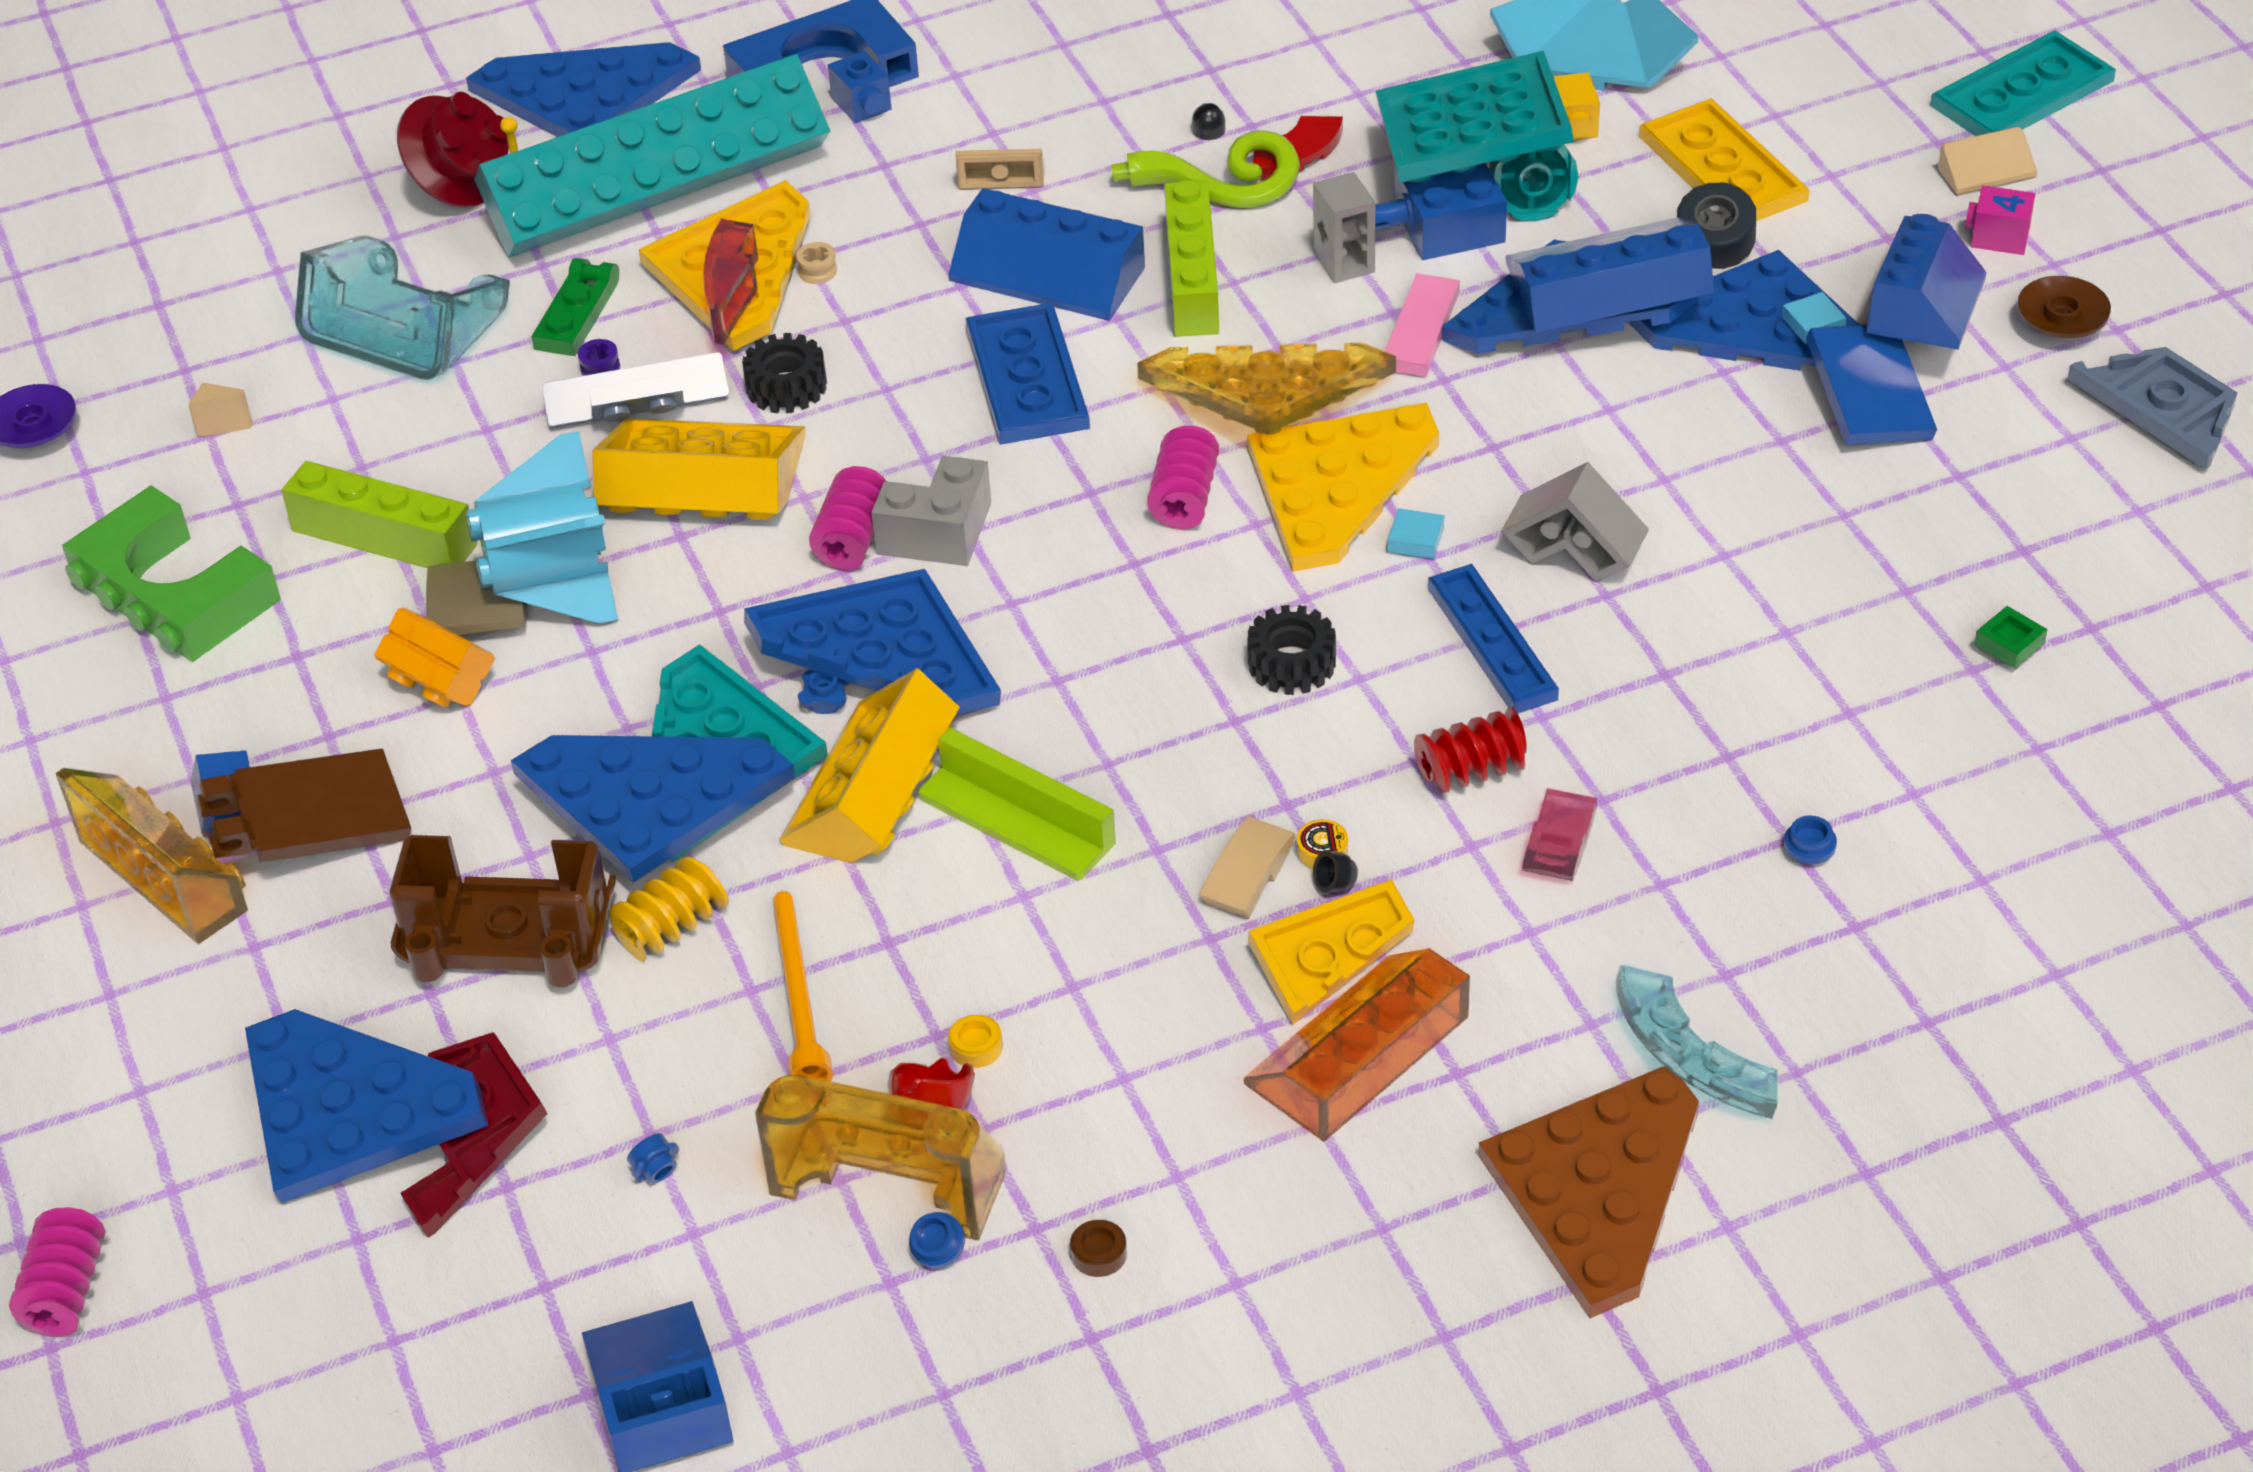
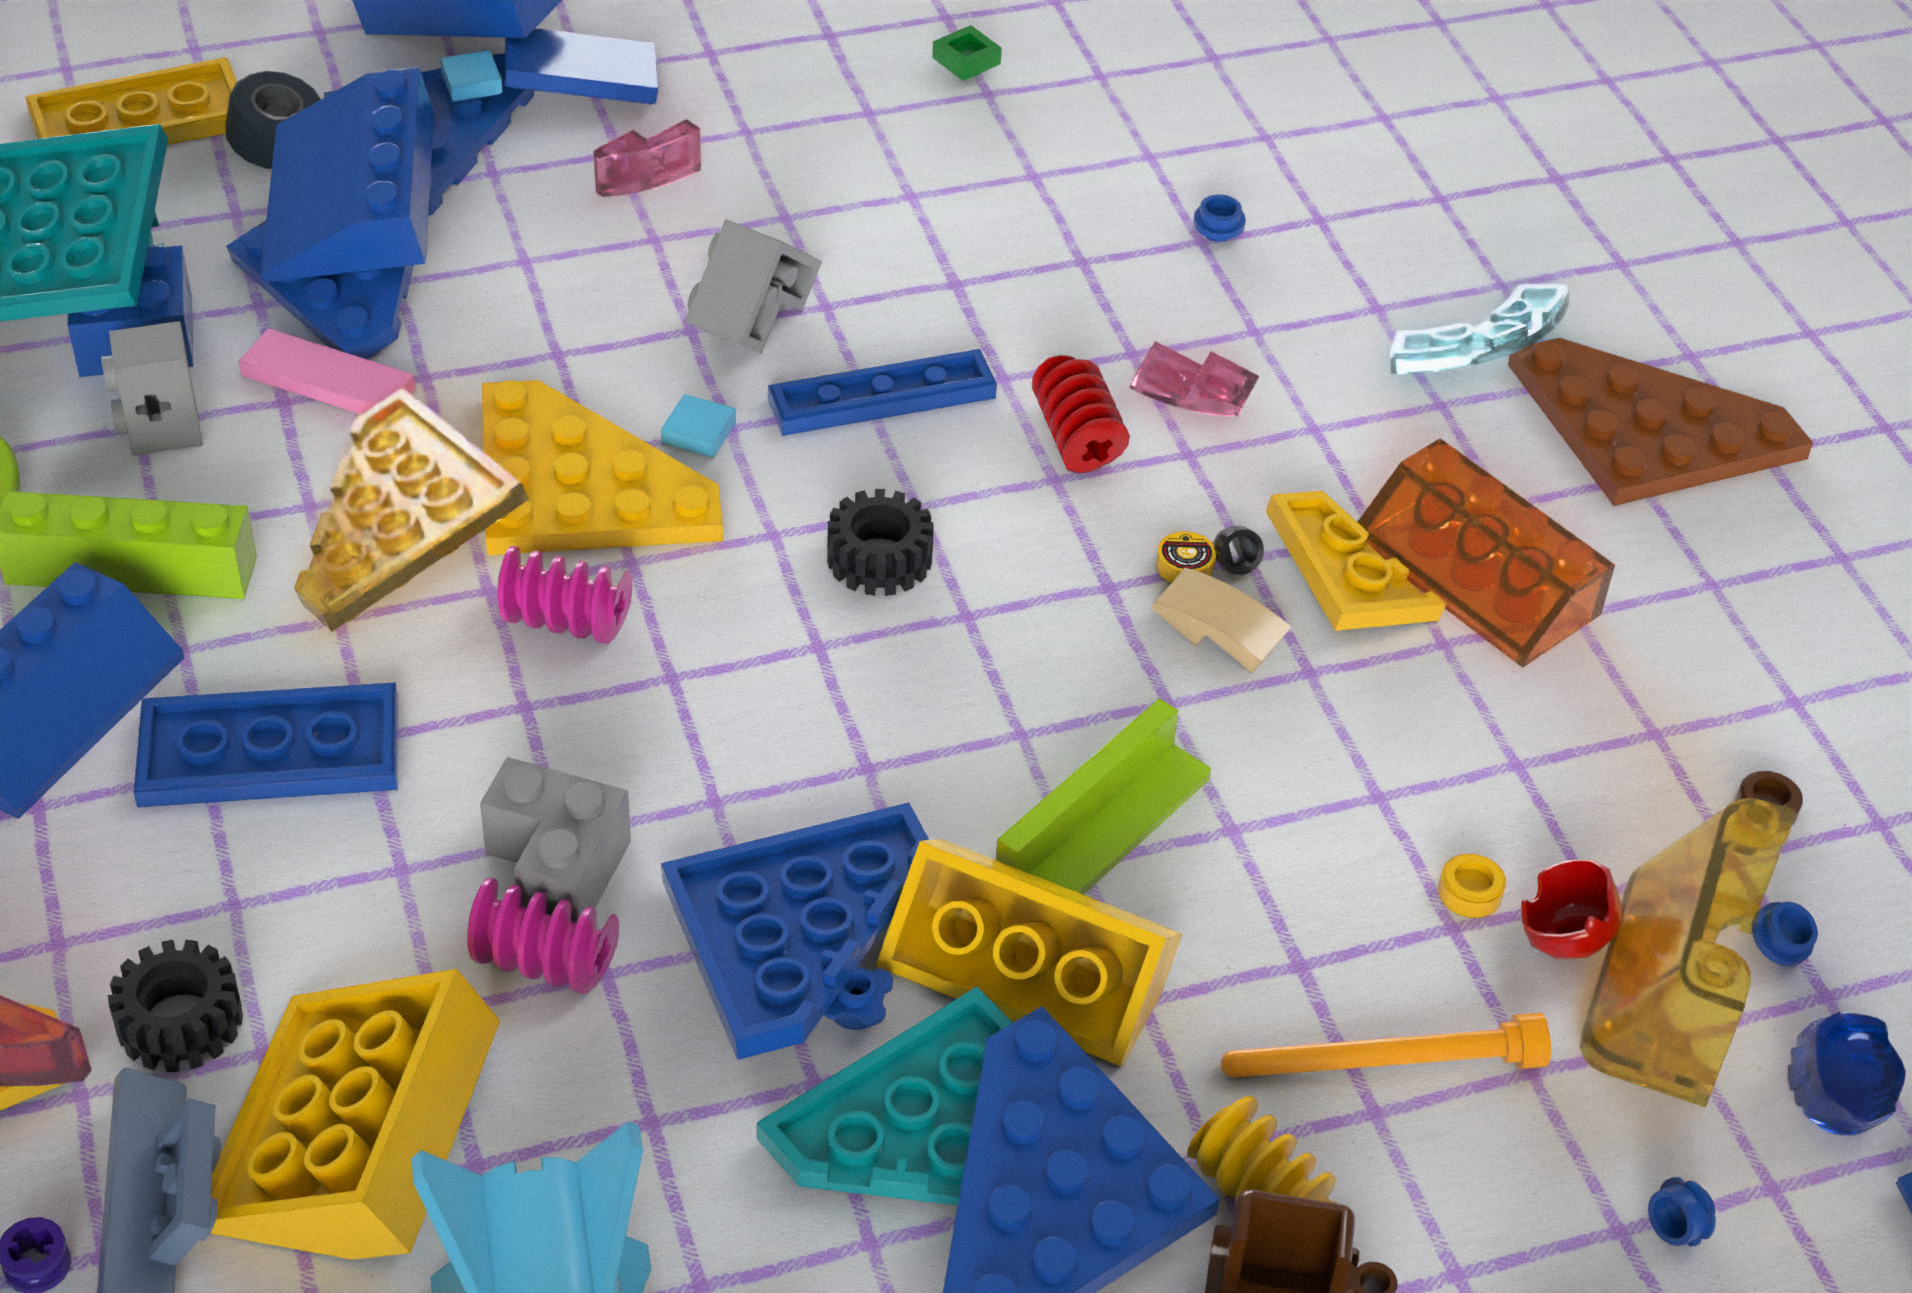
camera: 90 degrees left, 0 degrees up
(781, 1258) = (1846, 1073): none -> clear blue hair
(1751, 453) = (642, 164): none -> clear pink slope

